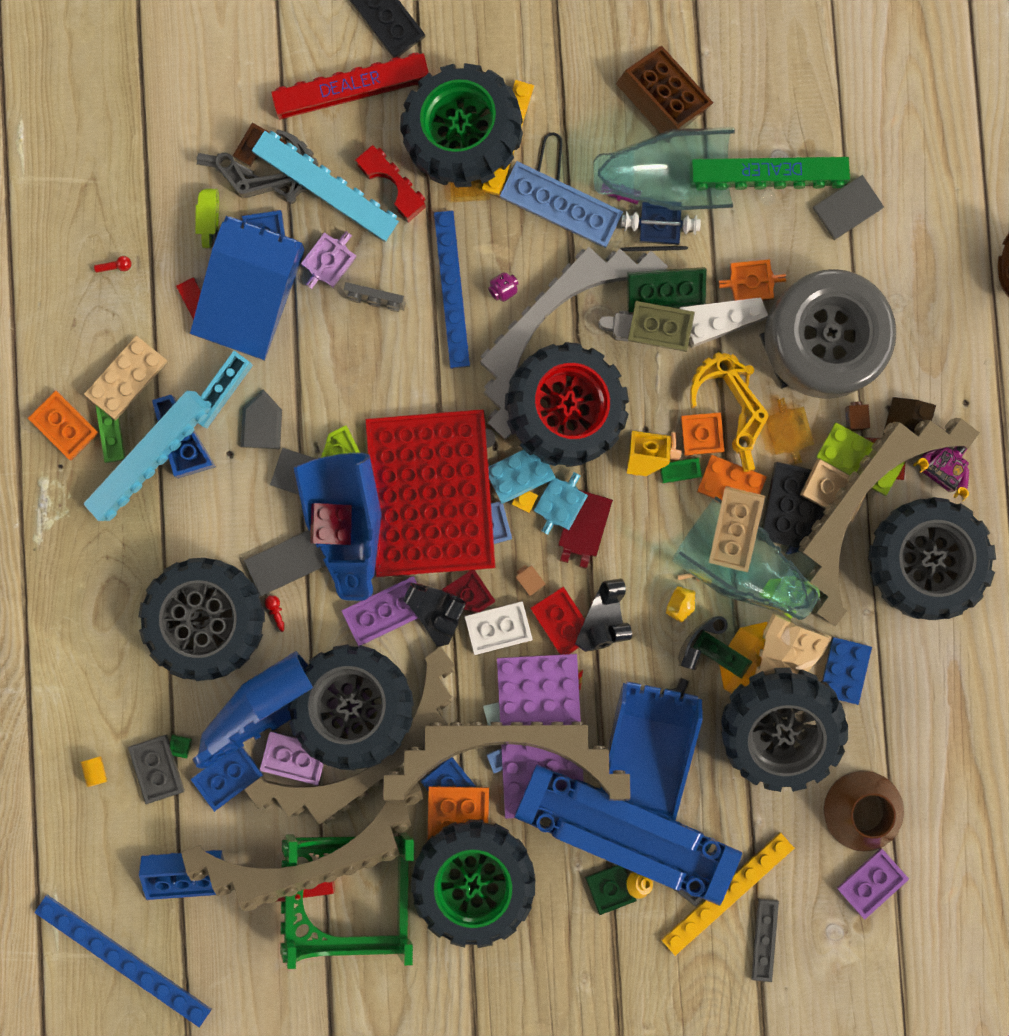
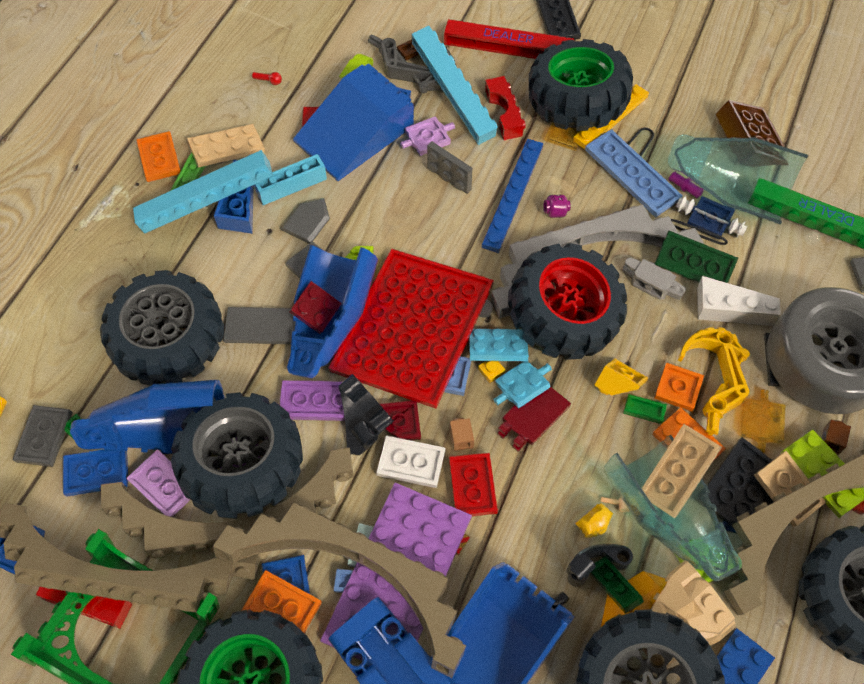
camera: 30 degrees right, 25 degrees down
(272, 604) = (229, 349): red bar -> none
(604, 619) = (515, 497): black panel -> none
(661, 326) = (680, 280): olive plate -> none
(674, 453) = (645, 391): light nougat hand -> none
(752, 280) = (775, 285): orange plate -> none

